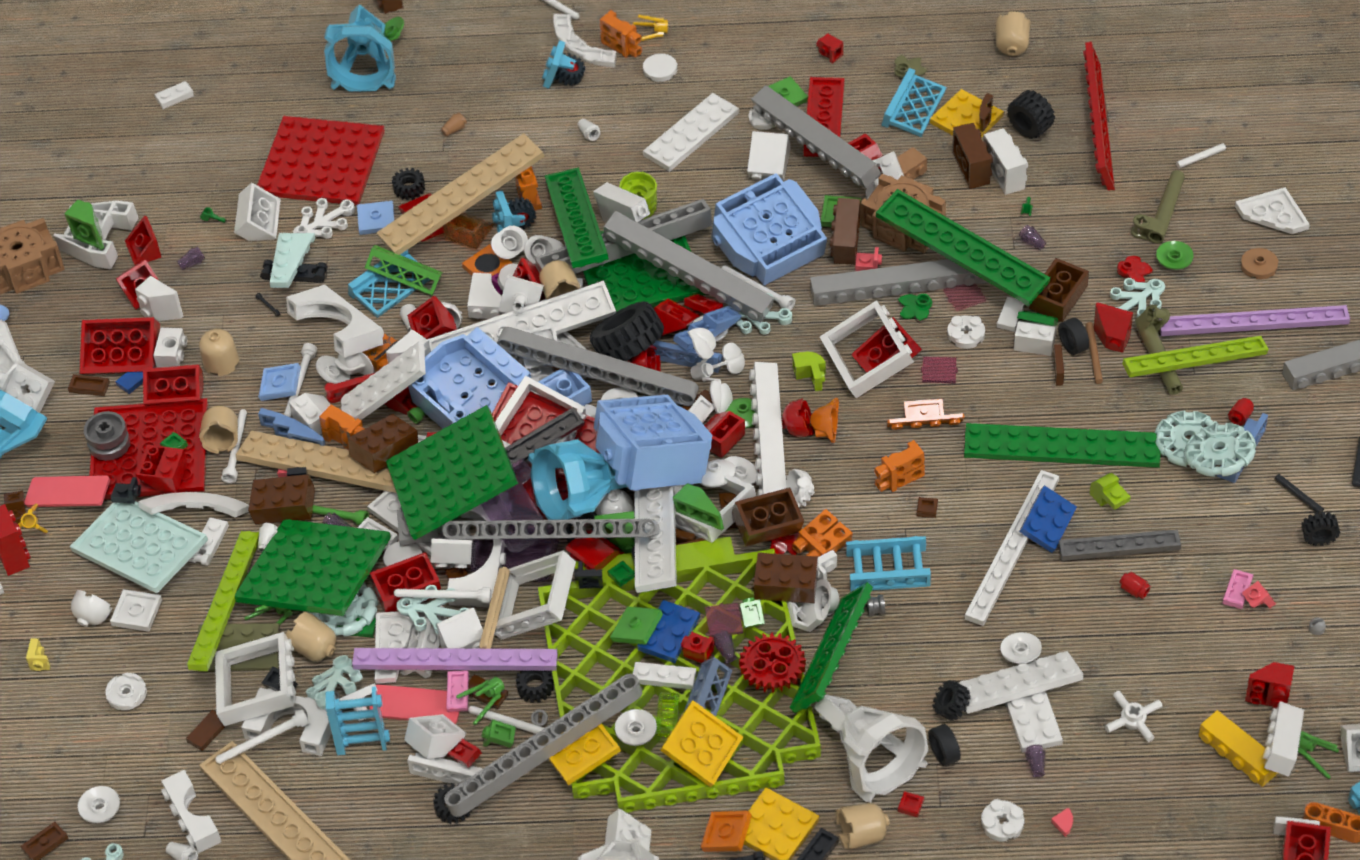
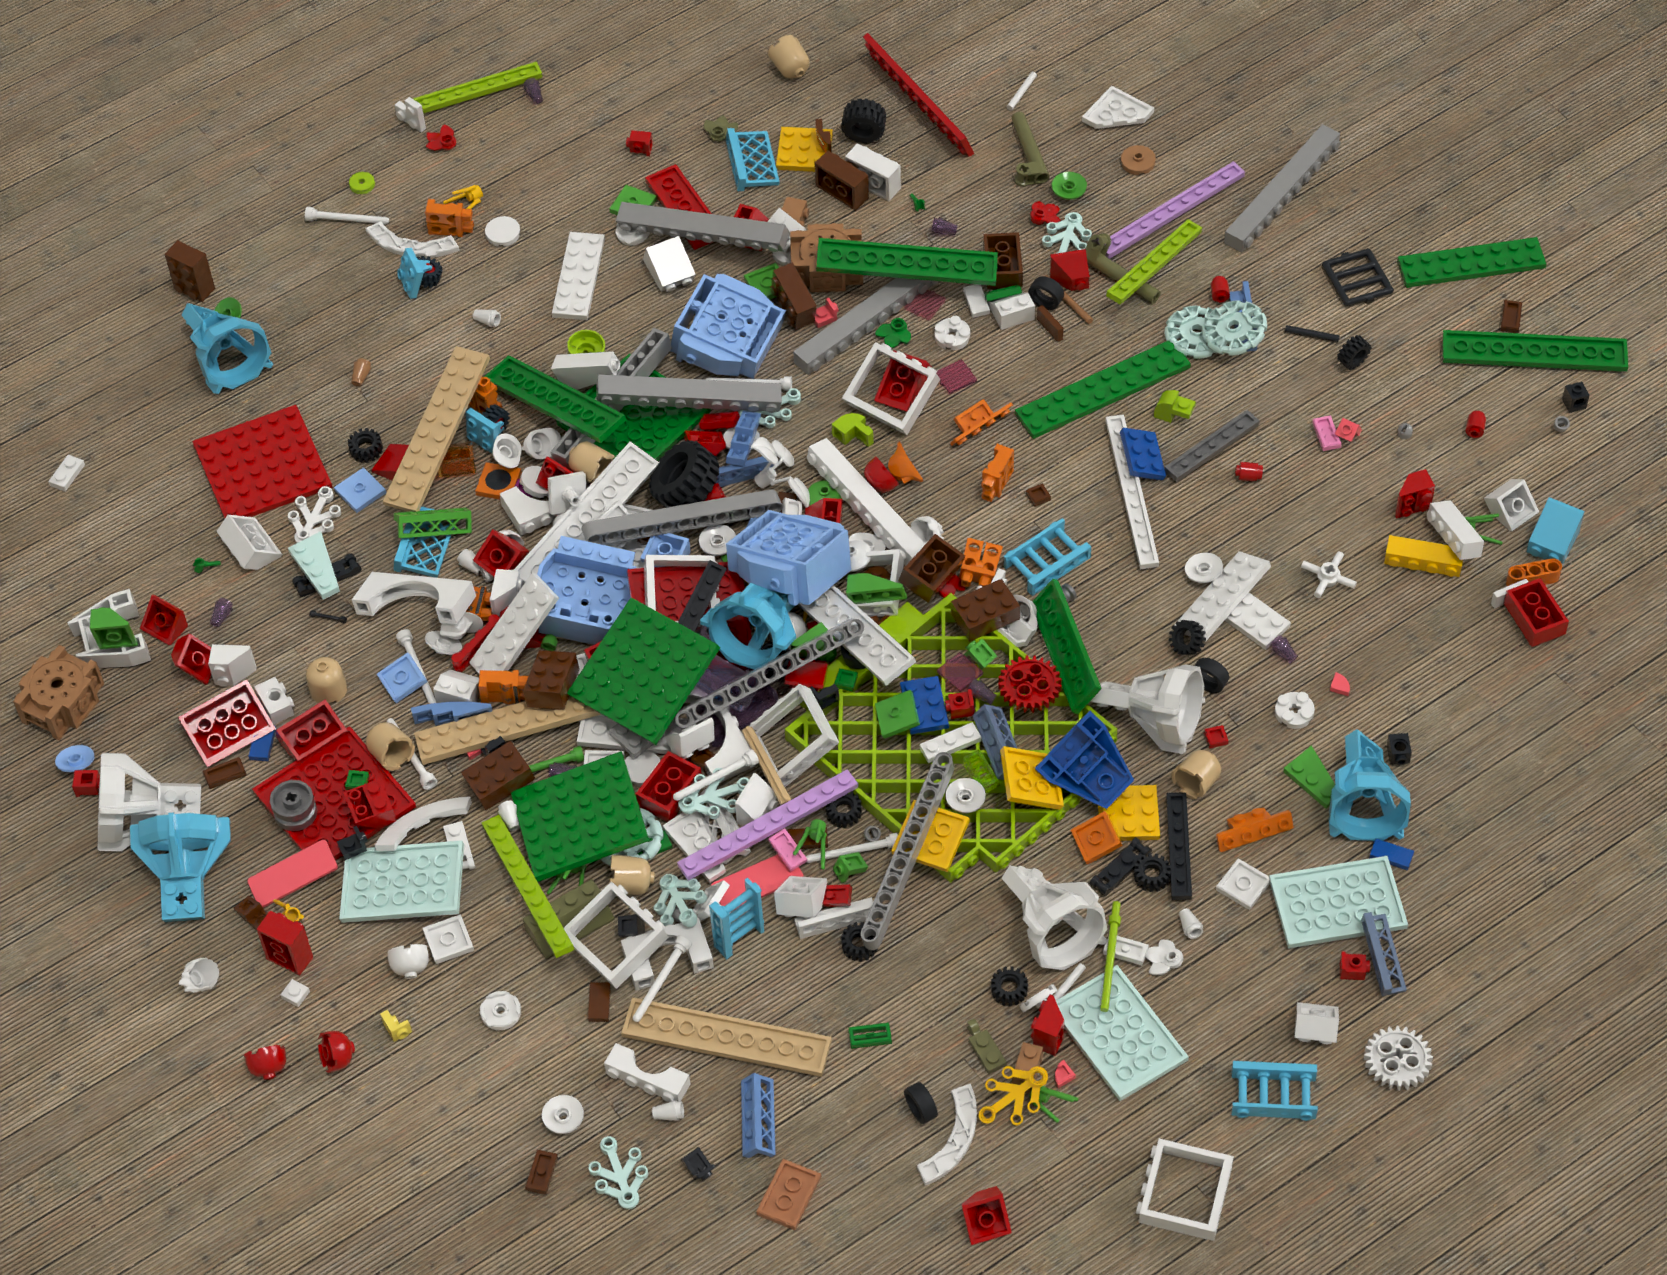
camera: 35 degrees left, 5 degrees up
(758, 758) = (1087, 763): none -> blue wedge

